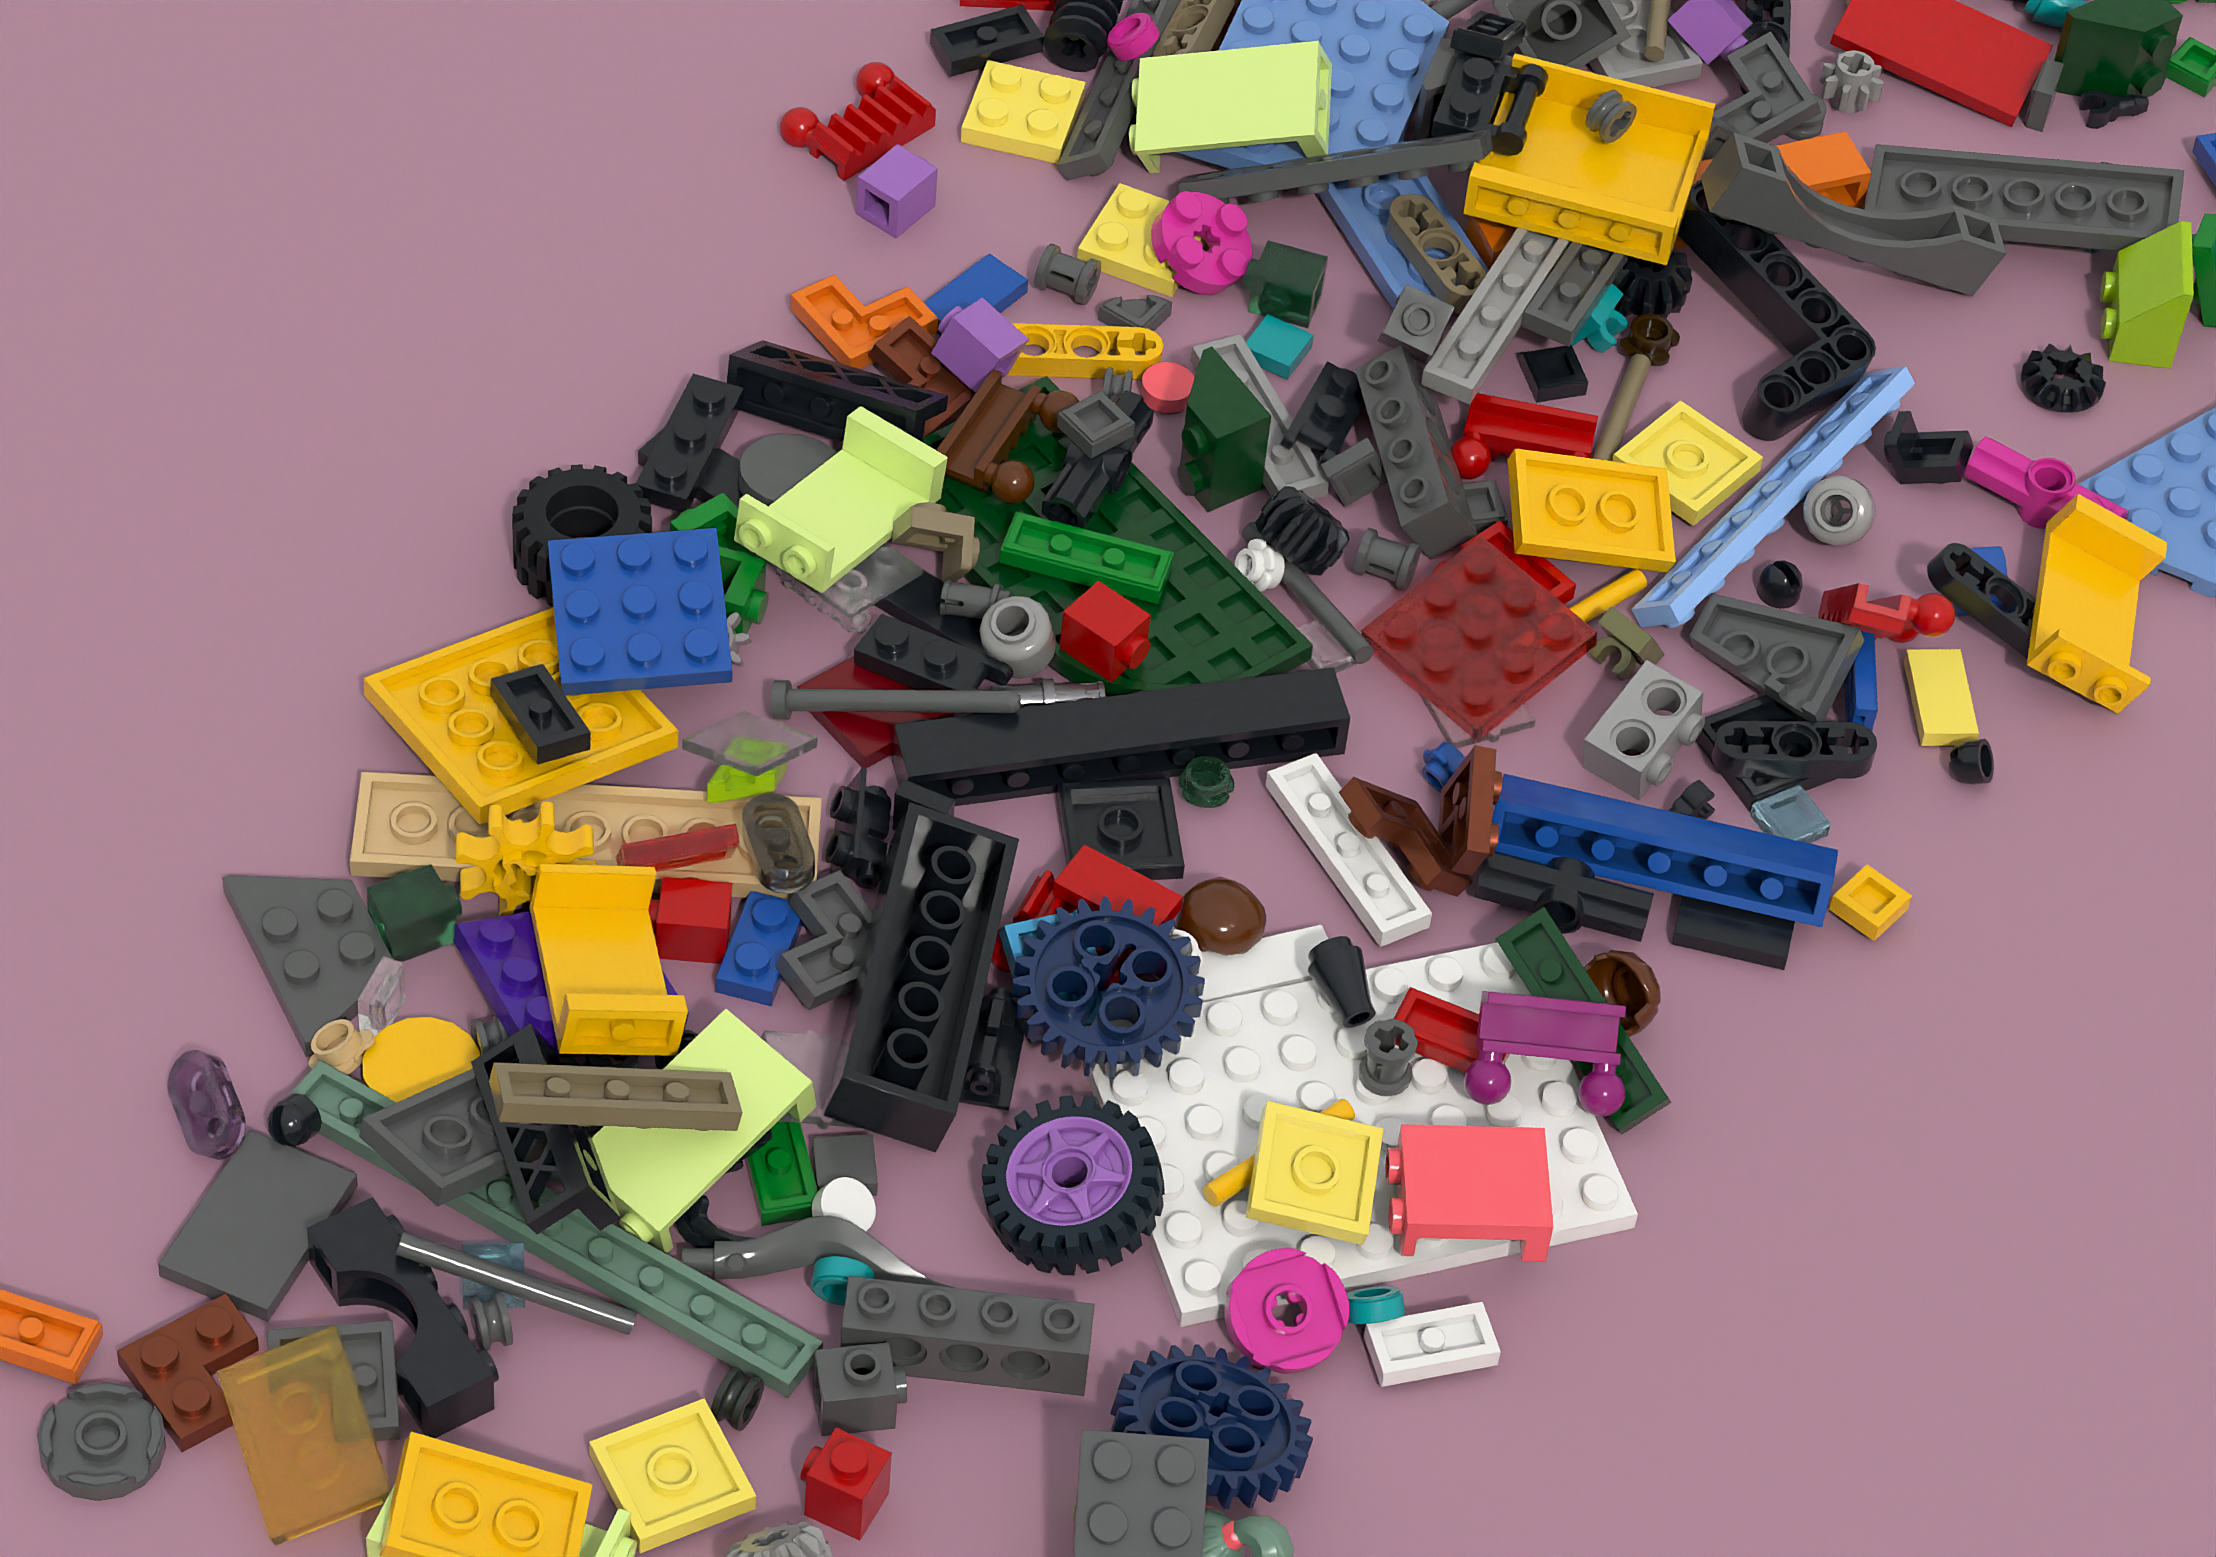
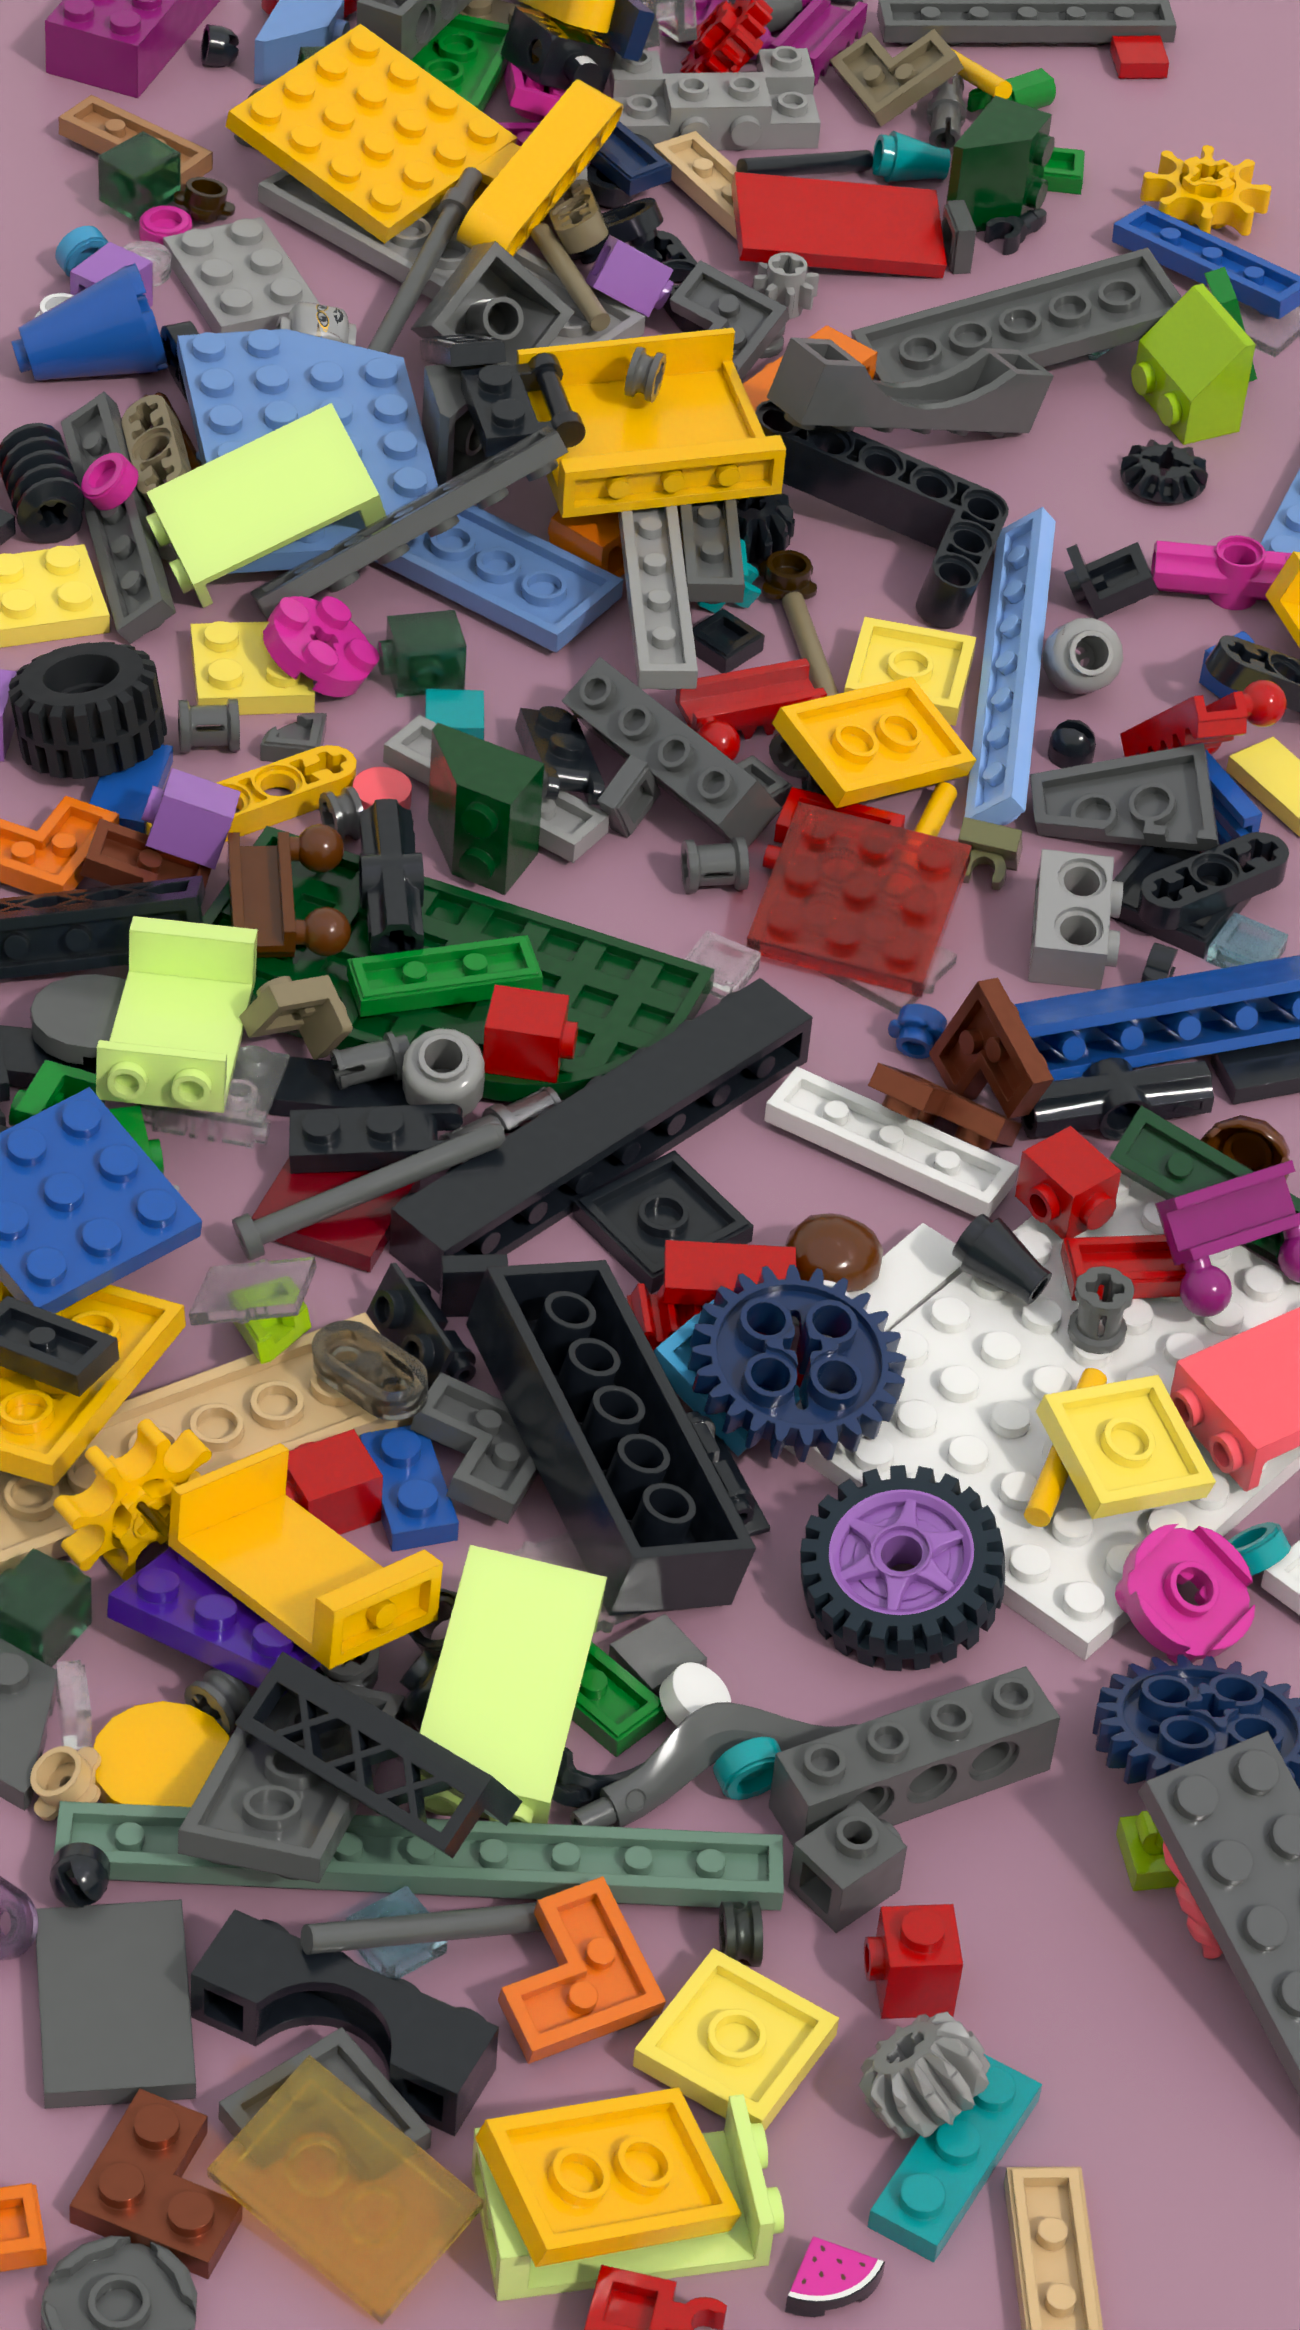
camera: 30 degrees left, 5 degrees down
(491, 1320) = (439, 1974): dark grey bush -> none
(595, 1387) = (598, 1981): none -> orange plate
(615, 1097) = (442, 1678): dark tan plate -> none
(681, 849) = (281, 1417): clear red tile -> none
(971, 222) = (88, 710): none -> black tyre
(1095, 424) = (378, 840): dark grey tile -> none
(1206, 782) = (711, 1139): clear green plate -> none
(1261, 564) = (612, 907): white plate -> none
(1302, 530) = (627, 867): black gear -> none
(1320, 606) = (669, 924): dark grey bar -> none
(1416, 323) = (610, 629): dark grey window -> none
(1434, 233) = (582, 586): dark tan beam -> none
(1444, 945) = (1068, 1184): none -> red brick

